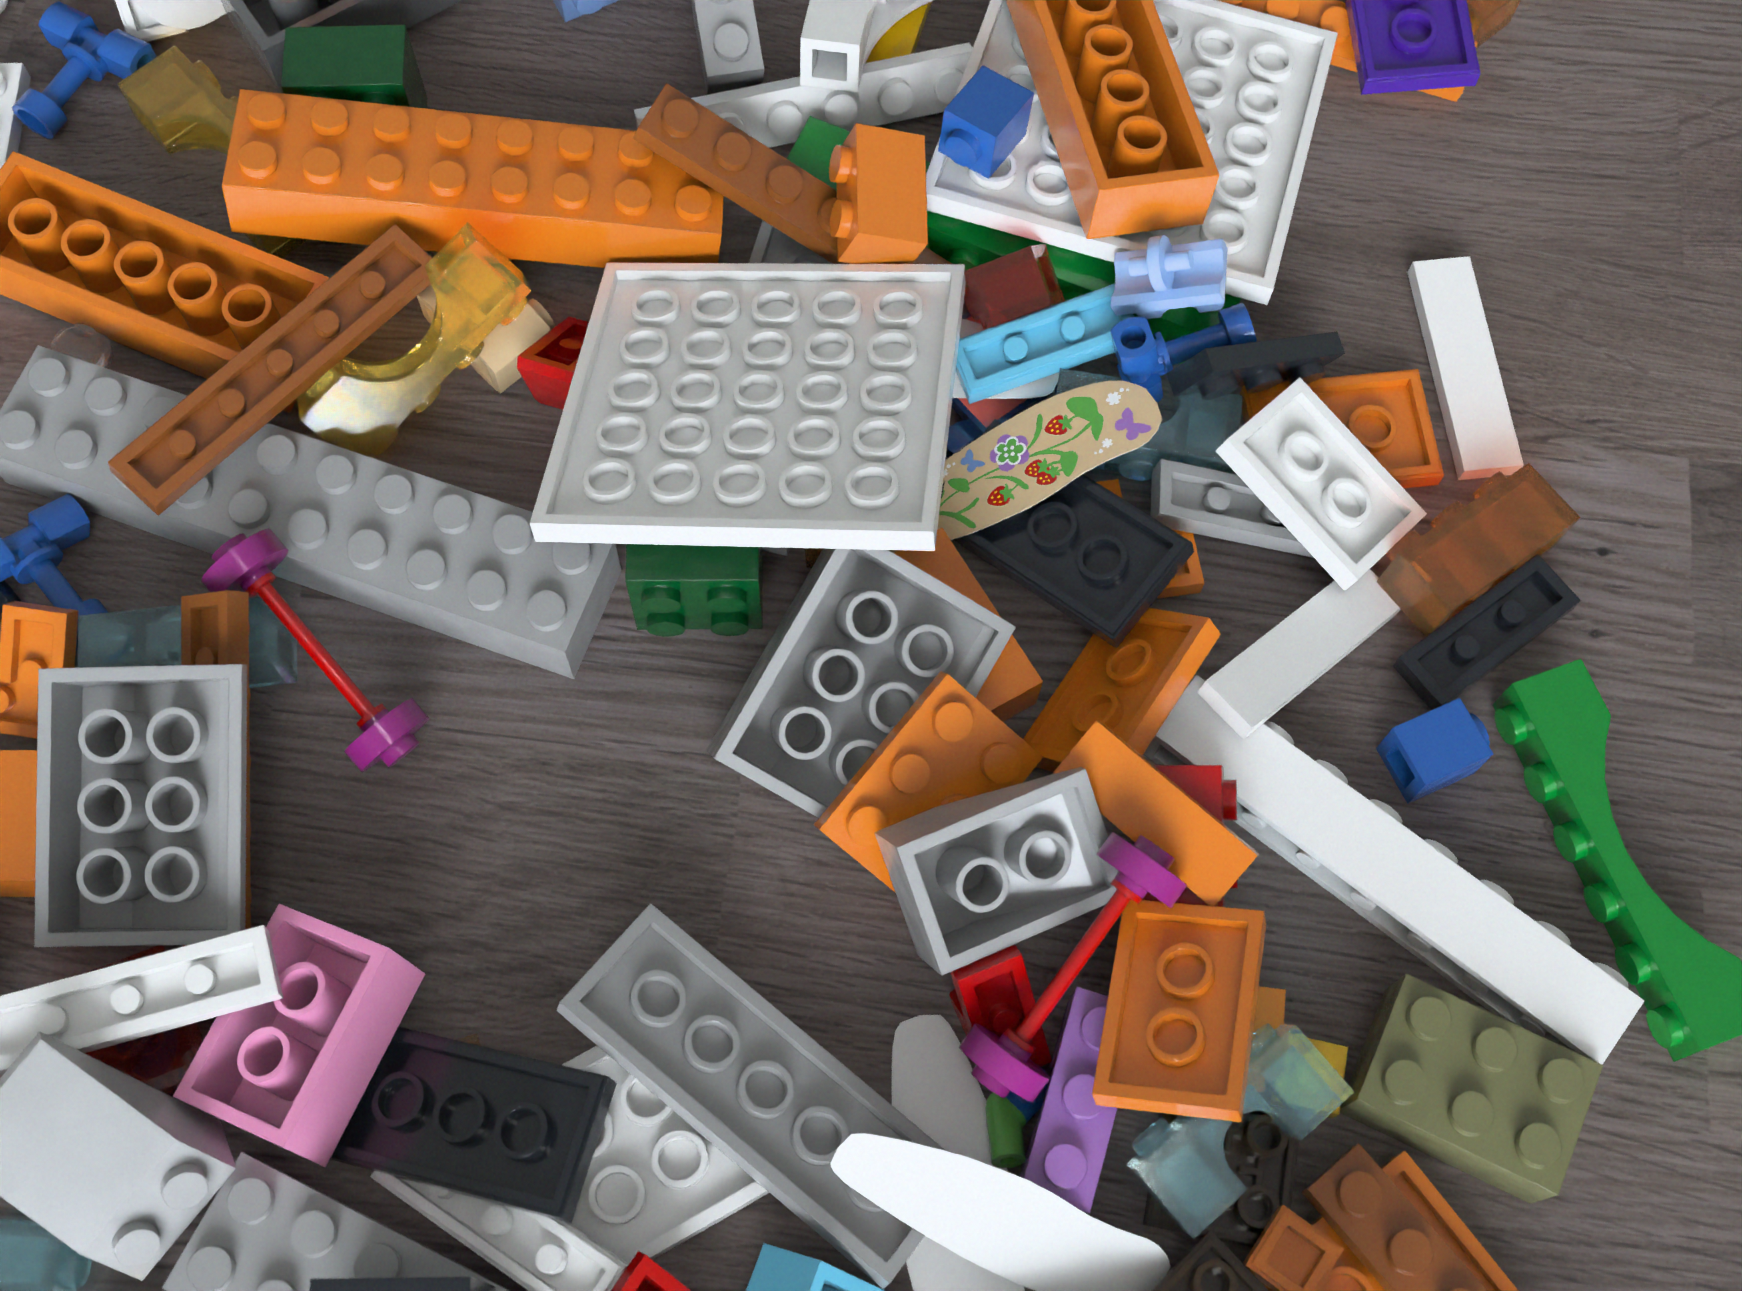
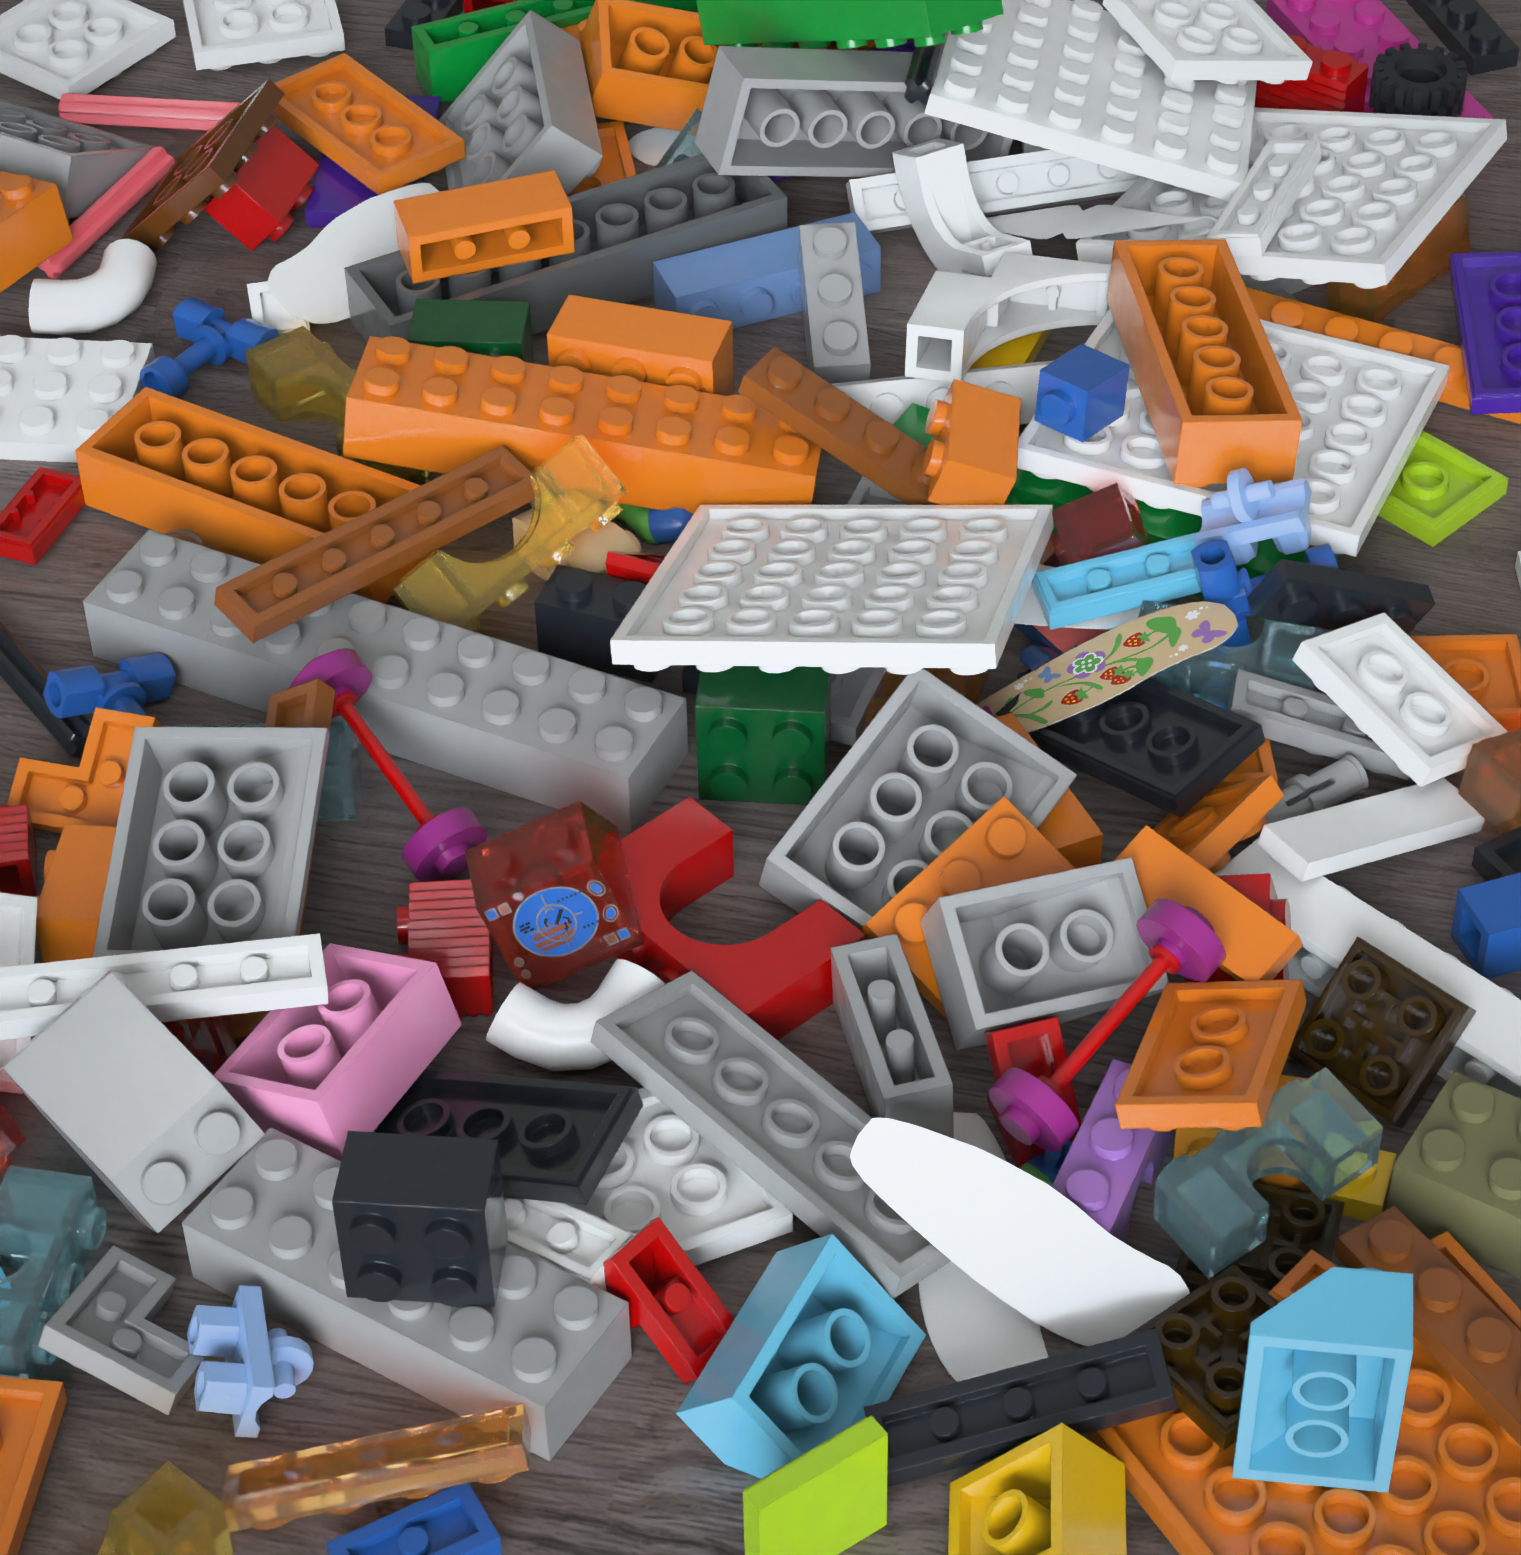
camera: 10 degrees right, 25 degrees down
(402, 863) = (447, 929): none -> red brick
(505, 816) = (556, 894): none -> clear red slope
(507, 418) = (581, 614): none -> black brick
(528, 73) = (643, 344): none -> orange brick
(544, 966) = (559, 1033): none -> white cylinder
(566, 278) = (654, 525): none -> arm
(579, 787) = (771, 979): none -> red arch
(856, 965) = (891, 1035): none -> light grey brick
(1234, 595) = (1320, 790): none -> light grey pin
(1331, 910) = (1381, 1031): none -> dark brown tile
(1336, 182) = (1440, 491): none -> lime tile

